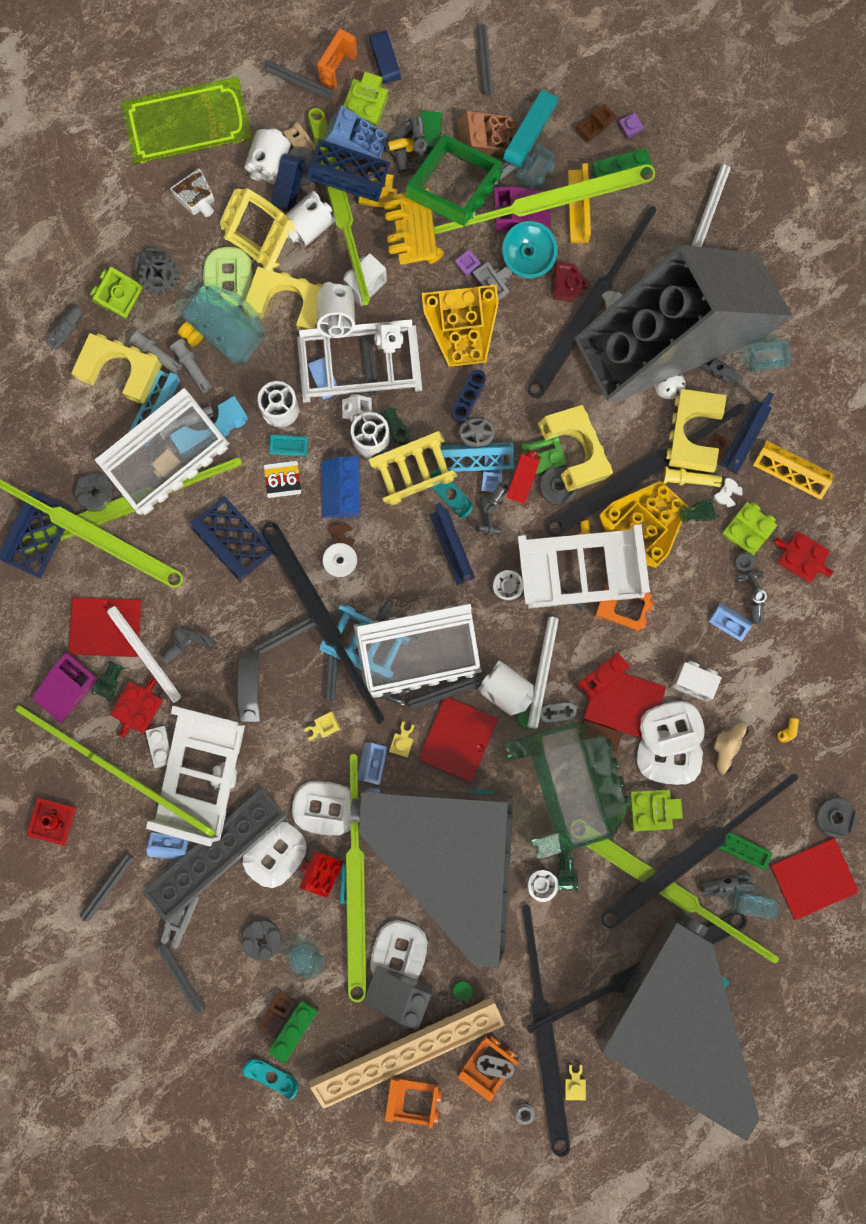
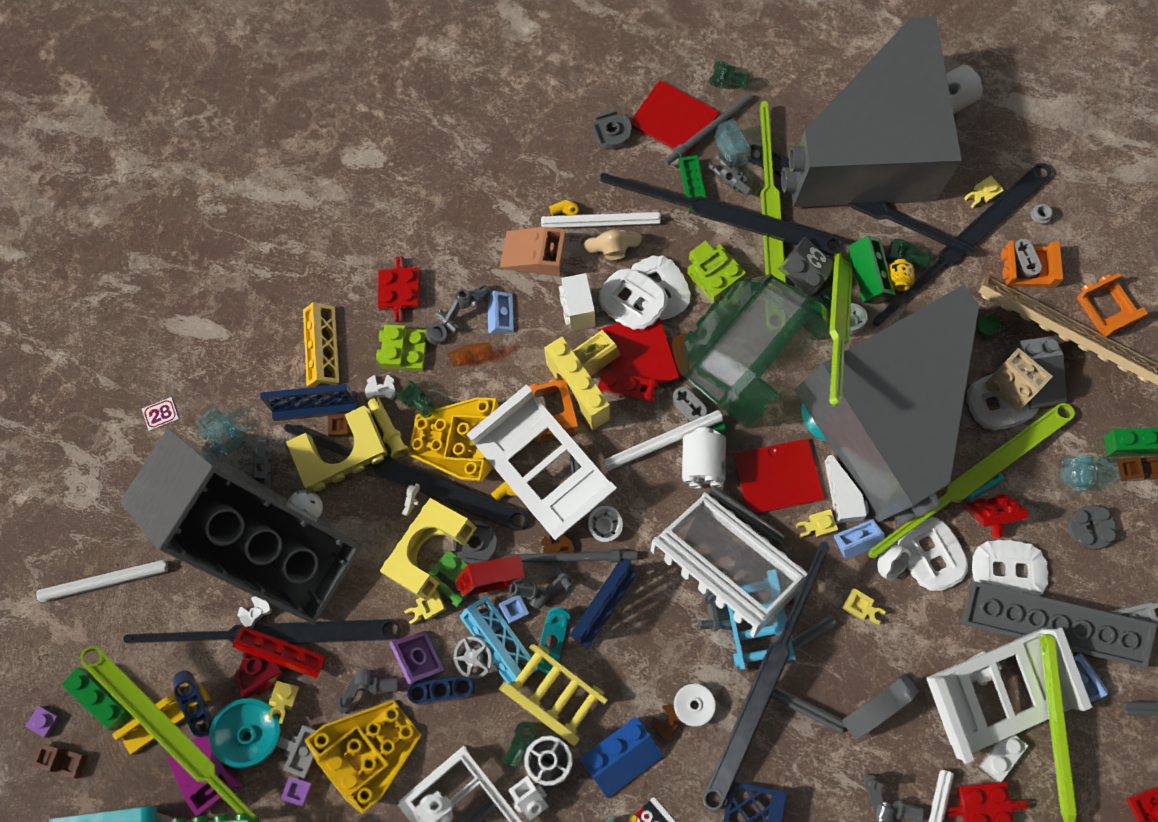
camera: 120 degrees left, 10 degrees down
(338, 770) = (893, 562): none -> white helmet
(403, 970) = (1018, 380): none -> tan bracket
(406, 774) = (845, 496): none -> white slope
(481, 578) = (613, 556): none -> dark grey bar
(503, 393) = (417, 657): none -> medium lavender slope
(511, 349) = (362, 682): none -> dark grey pin
(513, 547) = (564, 546): none -> reddish brown piece
(531, 423) = (427, 609): none -> light yellow plate
(537, 167) = (145, 790): clear light blue window -> none
(537, 288) = (282, 698): none -> light yellow plate
(540, 857) = (840, 321): none -> lime piece
(550, 953) = (902, 274): none -> yellow head
(563, 974) = (907, 252): none -> clear green connector
(569, 932) = (871, 270): none -> green brick
(571, 304) = (279, 652): none -> red tile
(572, 225) = (190, 694): none -> dark blue beam
(606, 882) = (807, 267): none -> dark grey slope
(622, 460) = (410, 499): none -> white piece
(647, 668) = (596, 352): none -> light yellow slope
(651, 634) = (565, 365): none -> light yellow arch
(676, 1134) = (964, 87): none -> white cylinder
(708, 580) = (477, 351): none -> clear orange slope
(759, 752) = (601, 220): none -> white axle
(765, 680) = (534, 250): none -> nougat slope
(778, 859) = (681, 150): none -> dark grey bar
(816, 322) = (159, 413): none -> sticker
(824, 949) = (728, 76): none -> clear green connector

